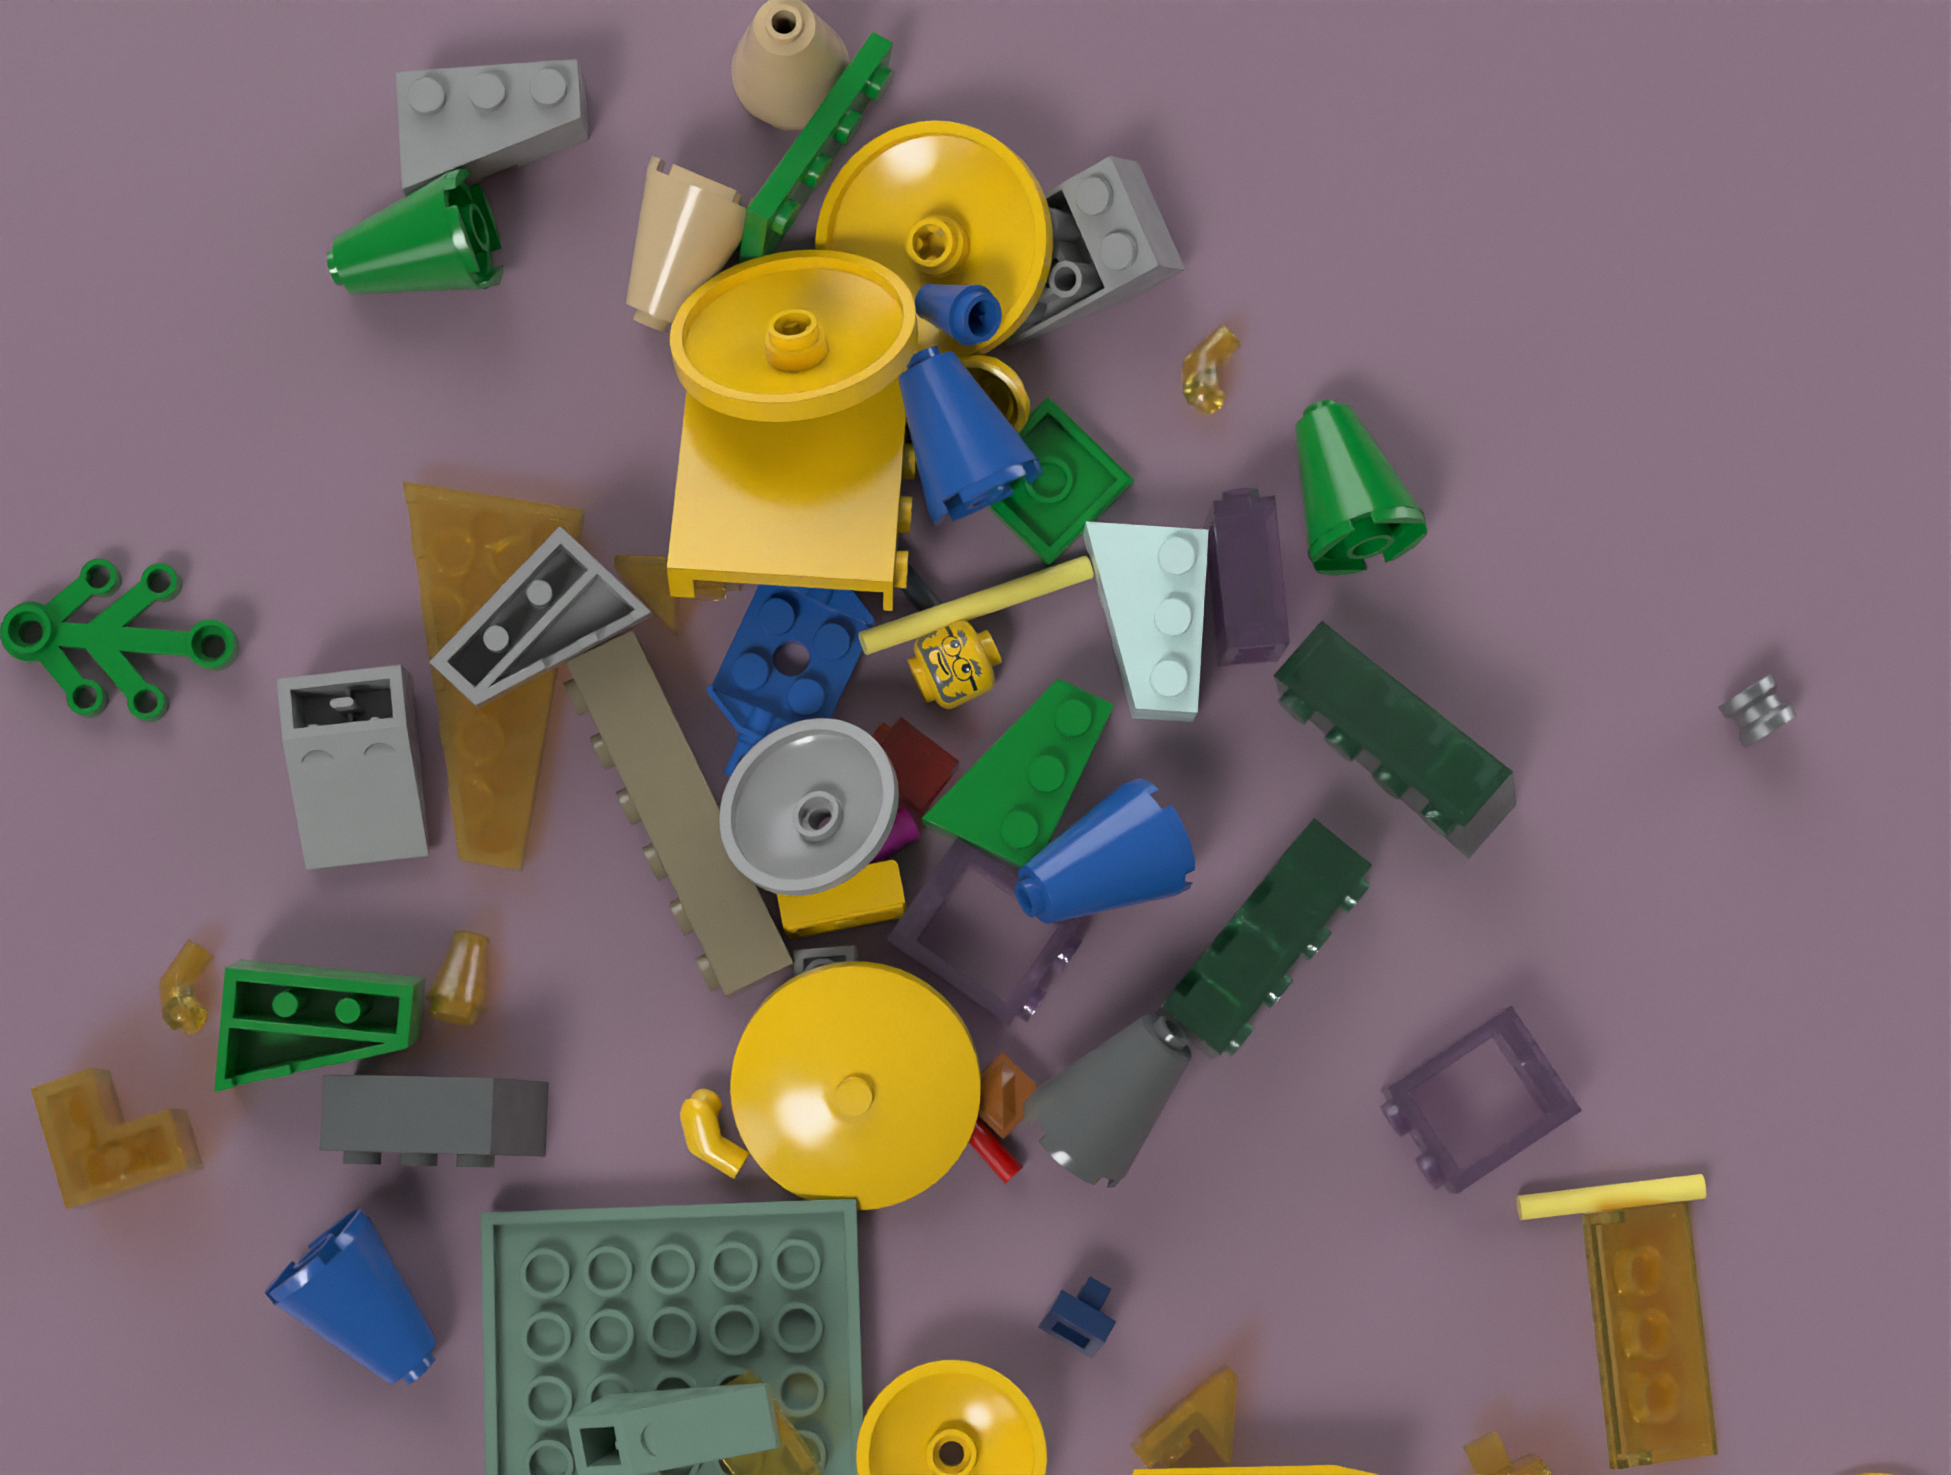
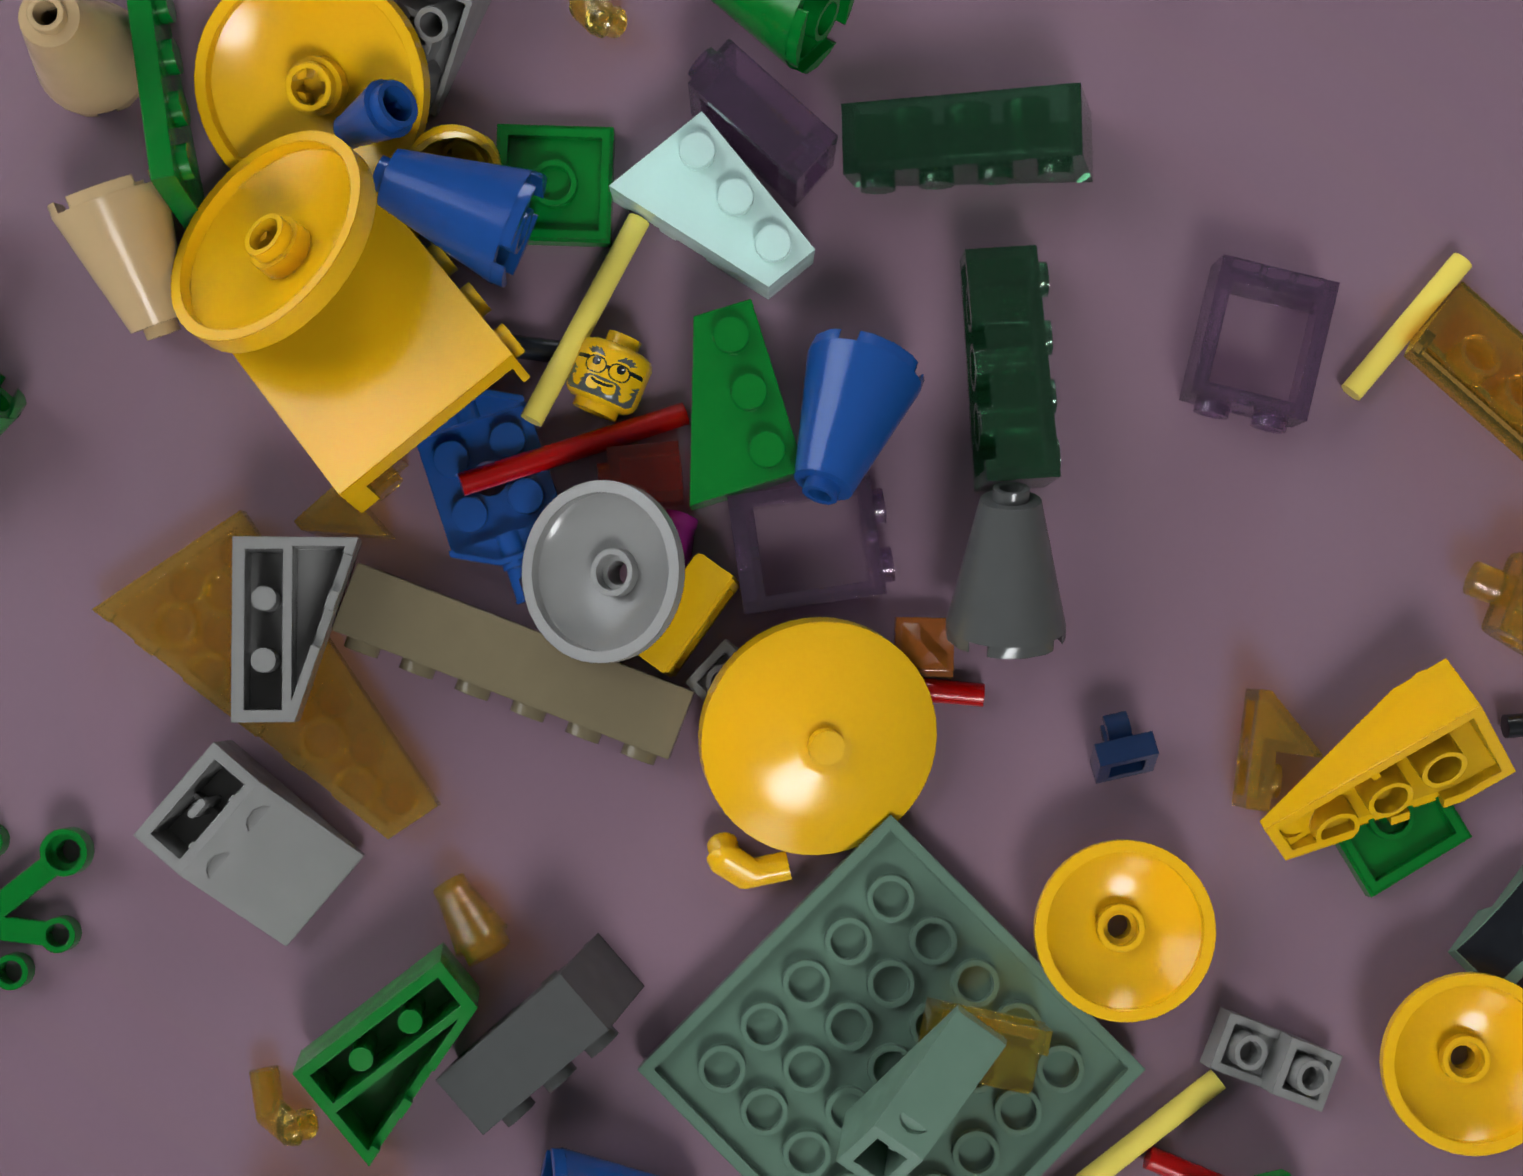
camera: 45 degrees left, 5 degrees up
(875, 694) = (572, 449): none -> red bar

